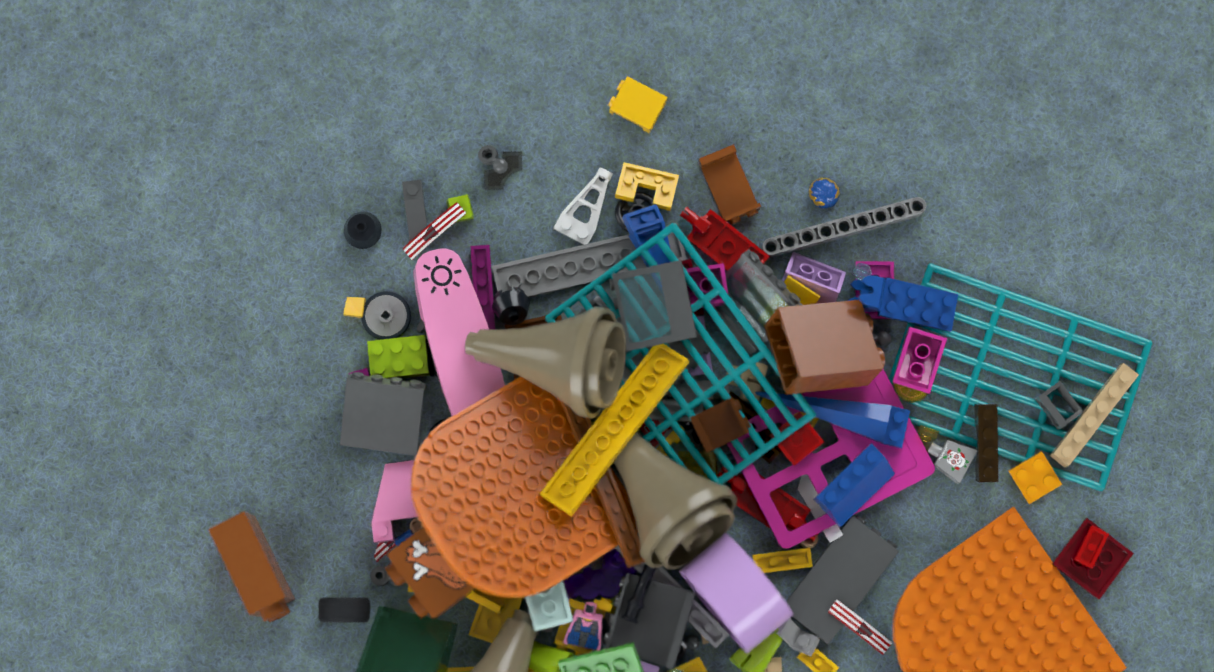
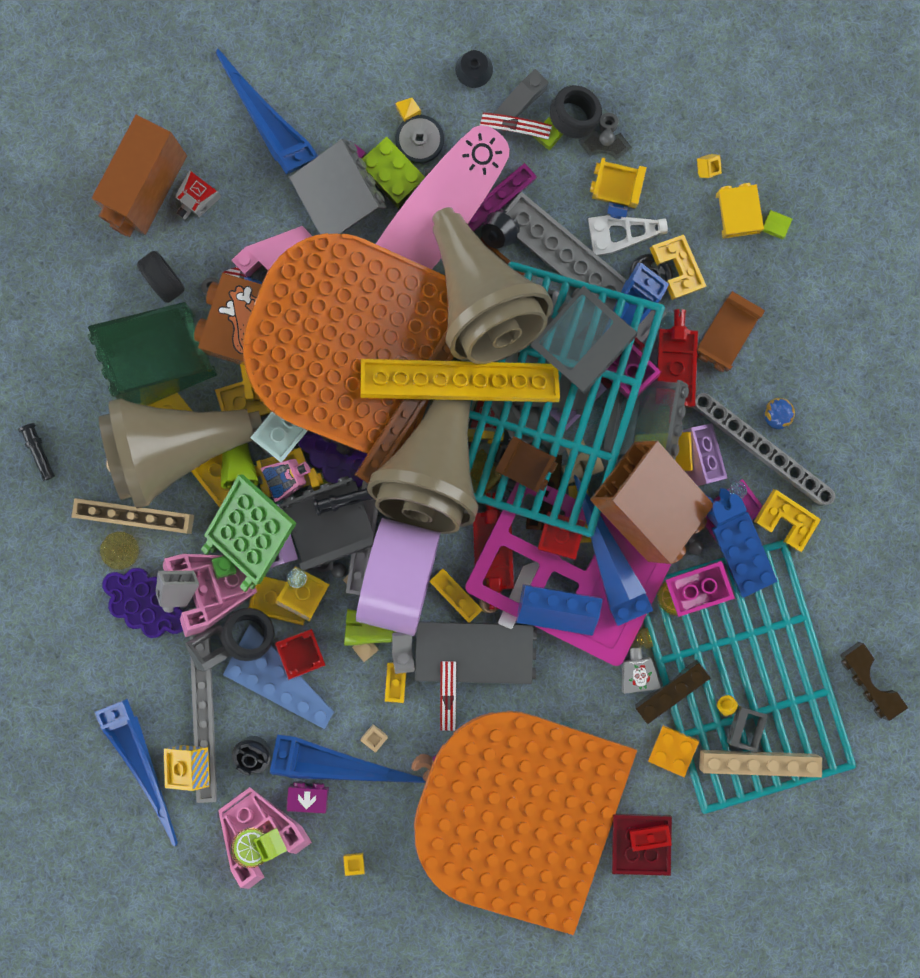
camera: 55 degrees right, 5 degrees up
(296, 533) = (195, 196): none -> torso
(304, 428) = (282, 140): none -> blue plate
(456, 160) = (586, 101): none -> black tyre
(543, 184) = (617, 183): none -> yellow panel
(564, 200) = (617, 210): none -> blue plate
(583, 101) = (709, 166): none -> yellow slope
(670, 82) = (776, 224): none -> lime piece
(924, 238) = (781, 506): none -> yellow plate
(1028, 407) = (727, 705): none -> yellow tile
(1067, 277) = (859, 661): none -> dark brown arch

